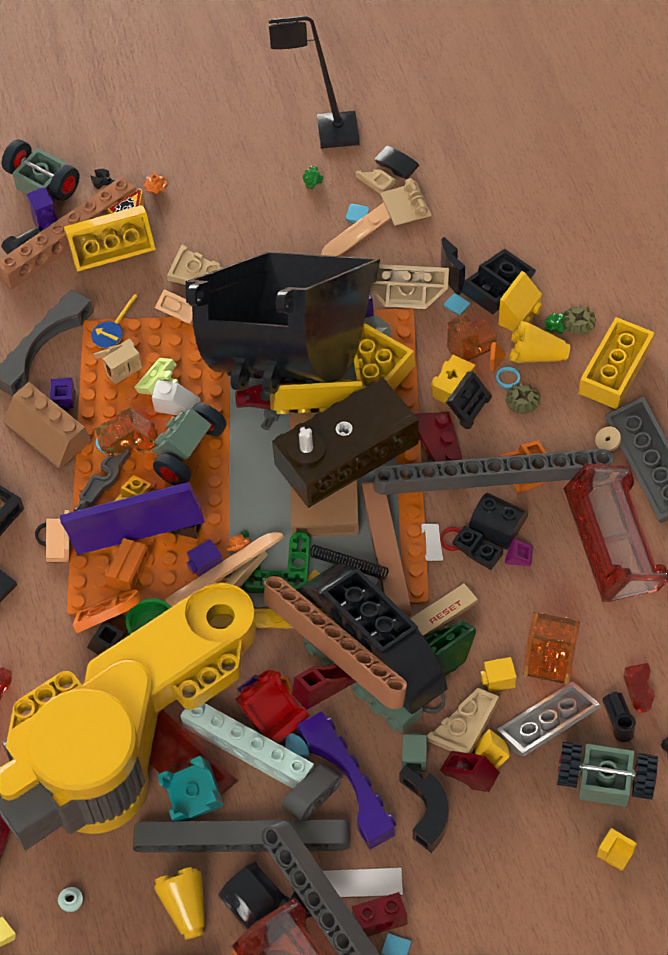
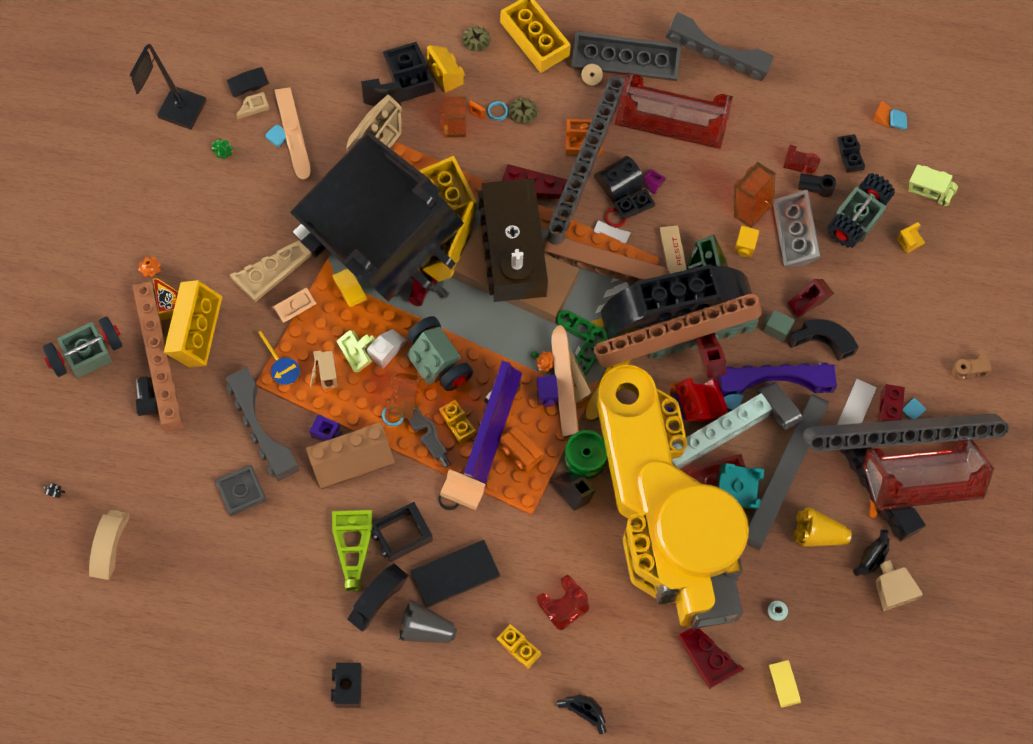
camera: 70 degrees left, 10 degrees up
(41, 208) = (127, 364): dark purple brick -> none
(103, 180) = (116, 304): black bar -> none
(106, 610) = (556, 480): orange tile -> none
(251, 895) = (837, 484): black slope -> none
(367, 572) = (608, 291): black piece -> none
(405, 203) = (293, 96): tan hinge -> none
(449, 378) = (482, 146): yellow brick -> none
(456, 304) = (410, 111): medium azure piece -> none
(464, 397) = (508, 144): black plate -> none
(466, 724) = (772, 282): tan wing -> none
(493, 748) = (800, 275): yellow panel -> none
(537, 345) = (486, 77): yellow cone -> none
(554, 322) = (471, 54): green plant -> none

